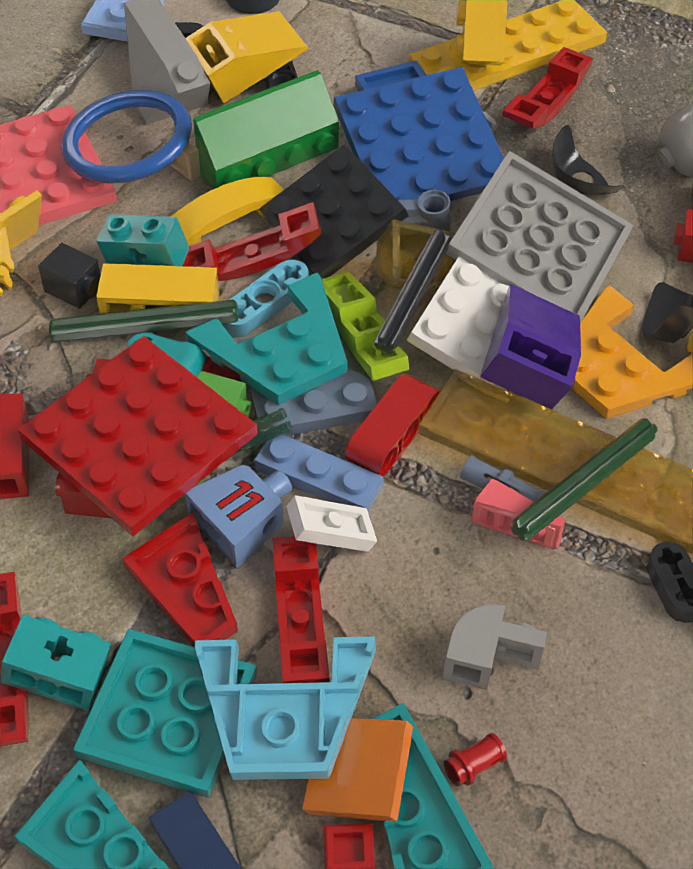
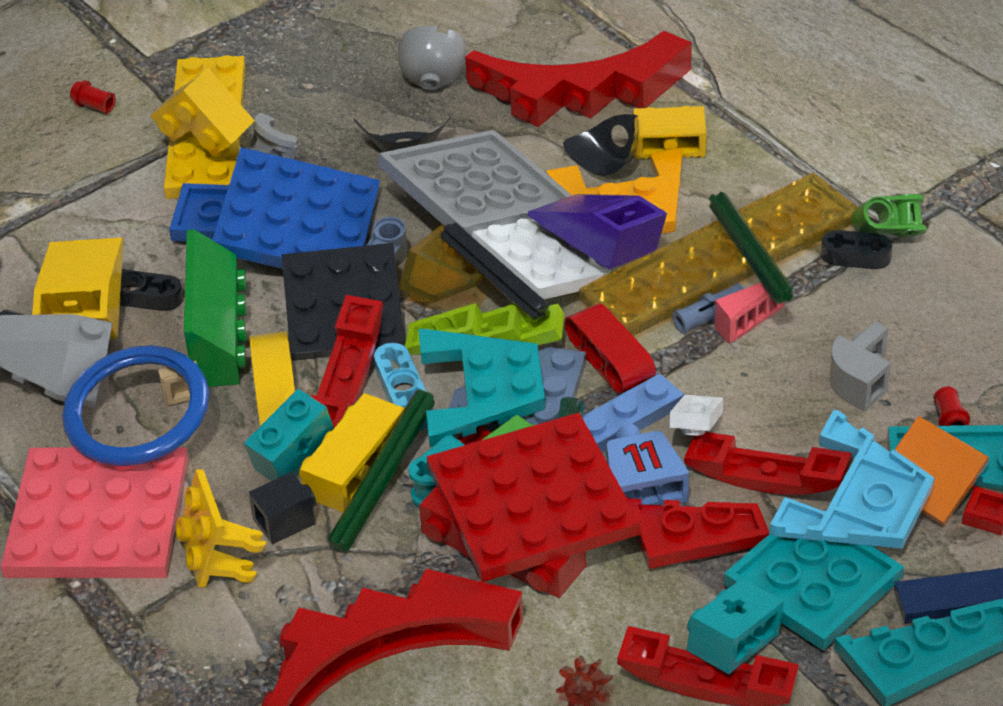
camera: 60 degrees left, 10 degrees down
(502, 82) = (270, 140): none -> light grey piece
(552, 91) = (275, 100): red slope -> none

